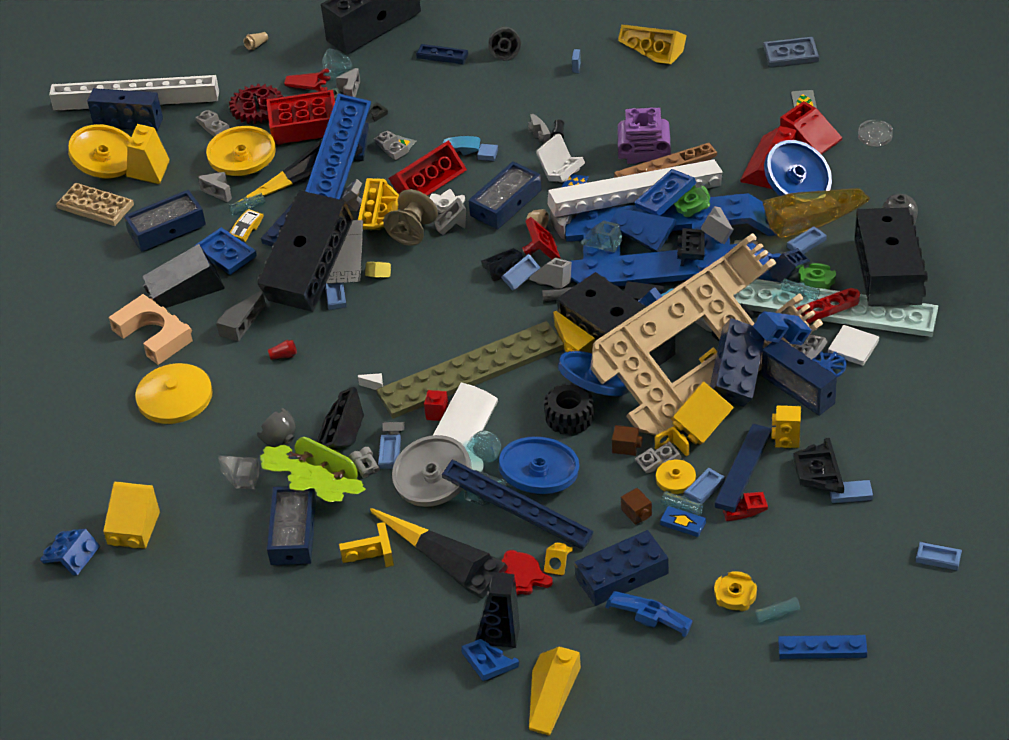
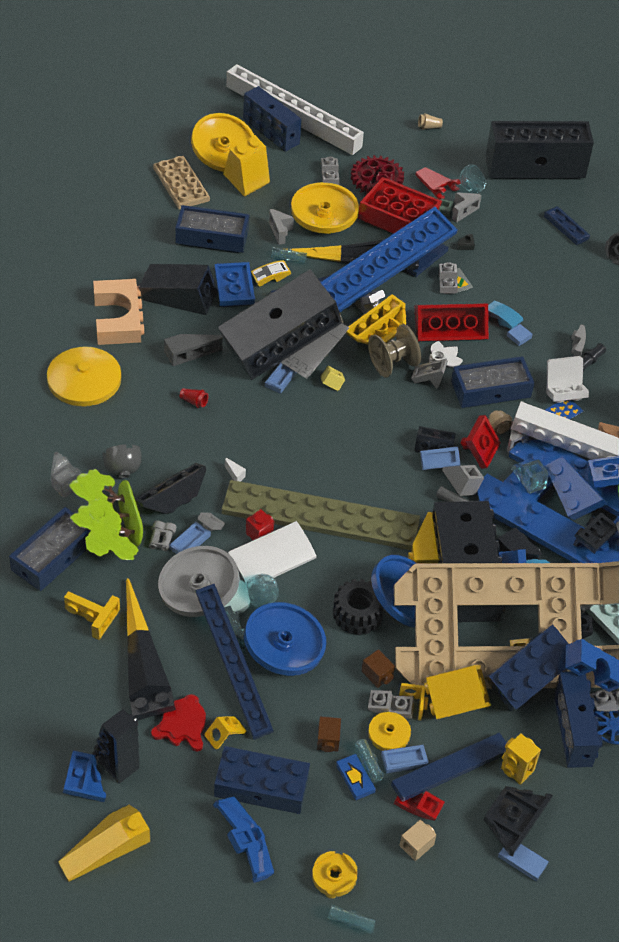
camera: 30 degrees right, 5 degrees up
(770, 528) = (418, 840): none -> tan brick

